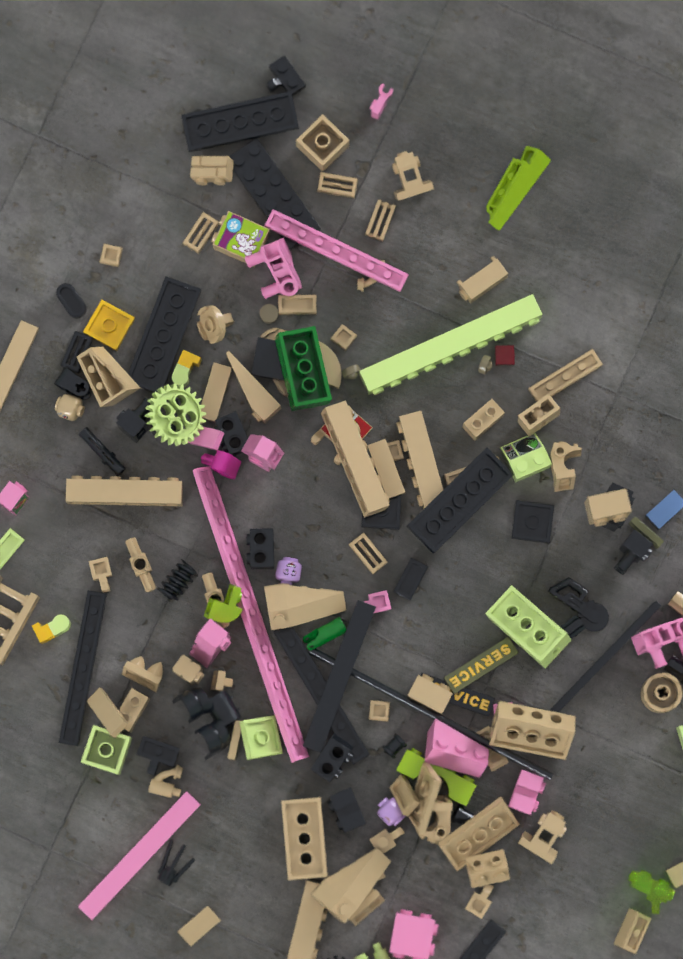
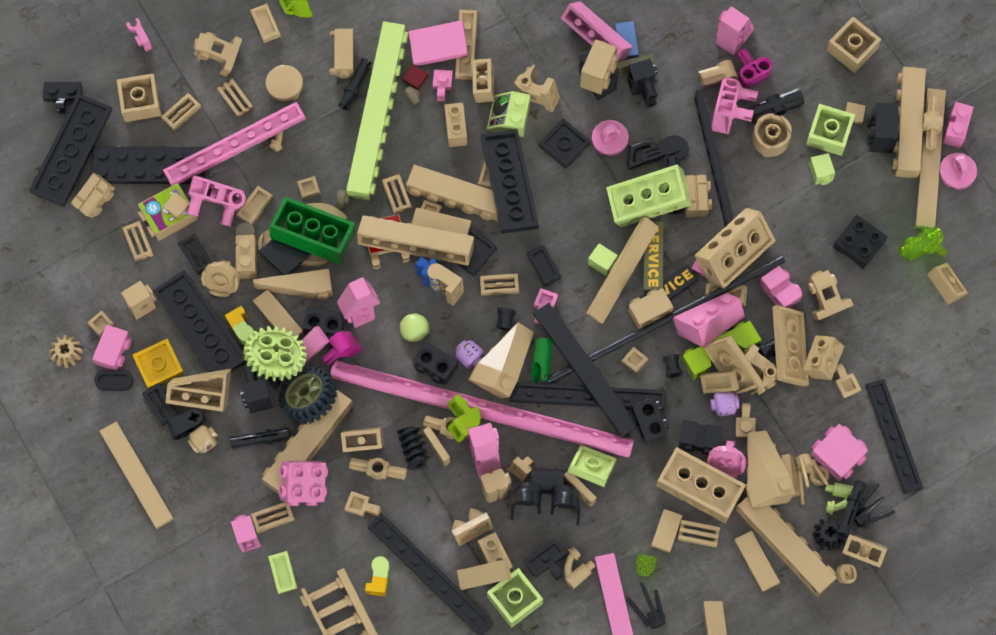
camera: 55 degrees left, 10 degrees down
(32, 499) = (273, 524): none -> tan tile
(74, 247) = (60, 346): none -> tan gear
(85, 513) = (303, 482): none -> bright pink brick
(95, 279) = (111, 348): none -> bright pink brick
(148, 272) = (139, 299): none -> tan brick
(155, 535) = (362, 439): none -> tan brick
(160, 466) = (307, 395): none -> black wheel
(192, 598) = (436, 446): none -> tan tile
(208, 836) = (645, 564): none -> clear neon green tile
(216, 302) = (187, 241): none -> black tile
(246, 330) = (246, 256): none -> tan brick
(247, 243) = (176, 206): none -> tan tile
(249, 835) = (666, 530): none -> tan tile
(271, 878) = (699, 533): none -> tan tile
(273, 927) = (756, 561): none -> tan tile
(282, 510) = (414, 327): none -> yellowish green hair
(334, 493) = (440, 279): none -> tan hips
(340, 579) = (505, 318): none -> black bush
(340, 846) = (728, 459): none -> bright pink tile
(382, 913) = (804, 466): none -> tan plant
(383, 931) = (814, 477): none -> tan tile
(390, 424) = (401, 208): none -> tan tile
(421, 251) = (284, 83): none -> tan tile
(448, 626) = (602, 259): none -> yellowish green brick
(449, 648) = (622, 270): none -> tan tile
(461, 310) = (351, 90): none -> black pin
(465, 196) = (265, 23): none -> tan tile
(515, 380) = (441, 82): none -> bright pink plate
(548, 353) = (438, 43): none -> bright pink tile
(564, 556) = (610, 138): none -> bright pink tile
(565, 662) = (698, 190): none -> tan brick
(617, 832) = (860, 241): none -> black brick
(651, 480) = (591, 27): none -> bright pink brick
(661, 756) = (822, 169): none -> yellowish green brick

